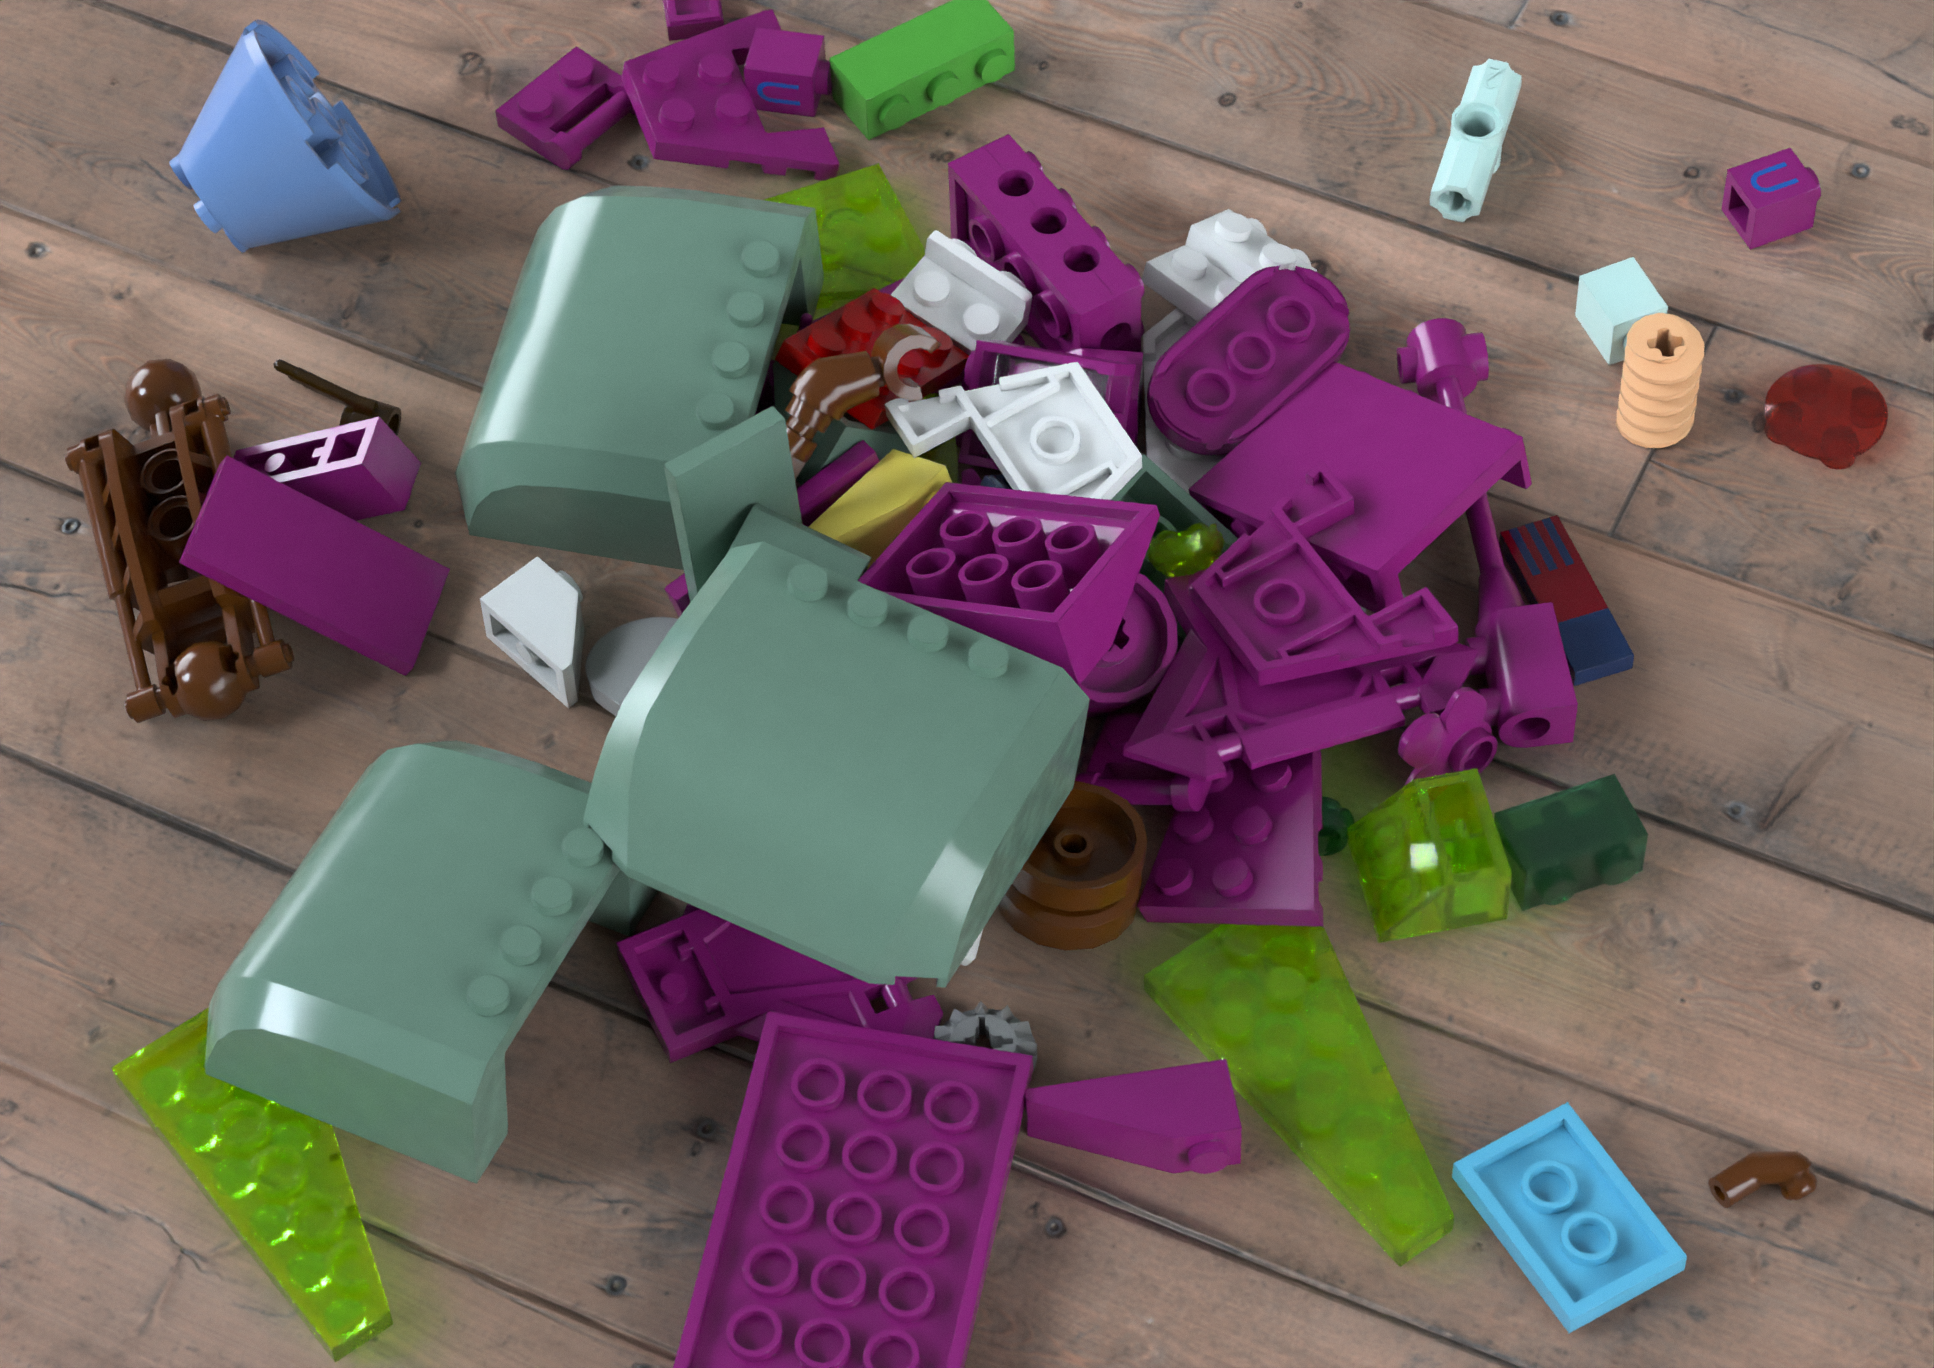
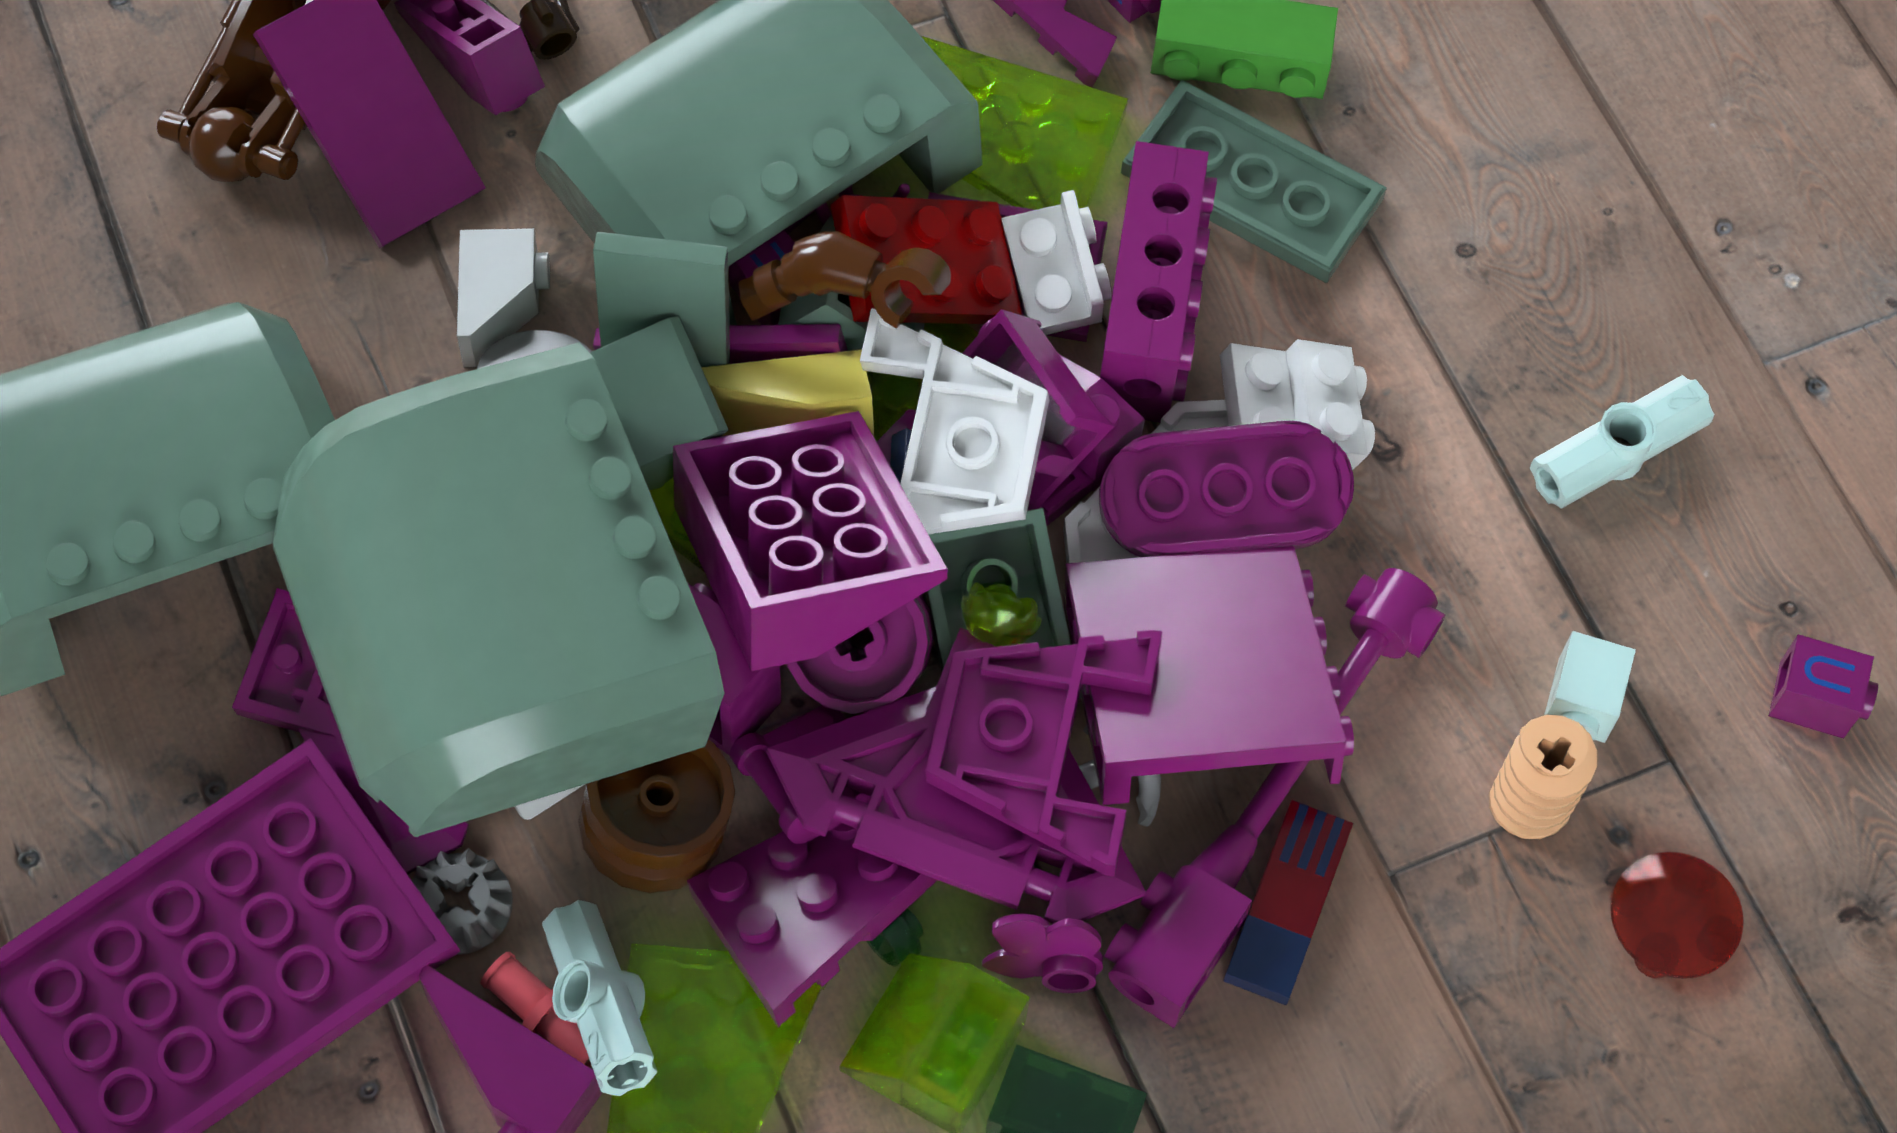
camera: 35 degrees right, 10 degrees up
(1082, 144) = (1268, 182): none -> sand green tile
(1099, 1061) = (533, 1004): none -> coral pin
(1200, 1021) = (599, 998): none -> light aqua piece

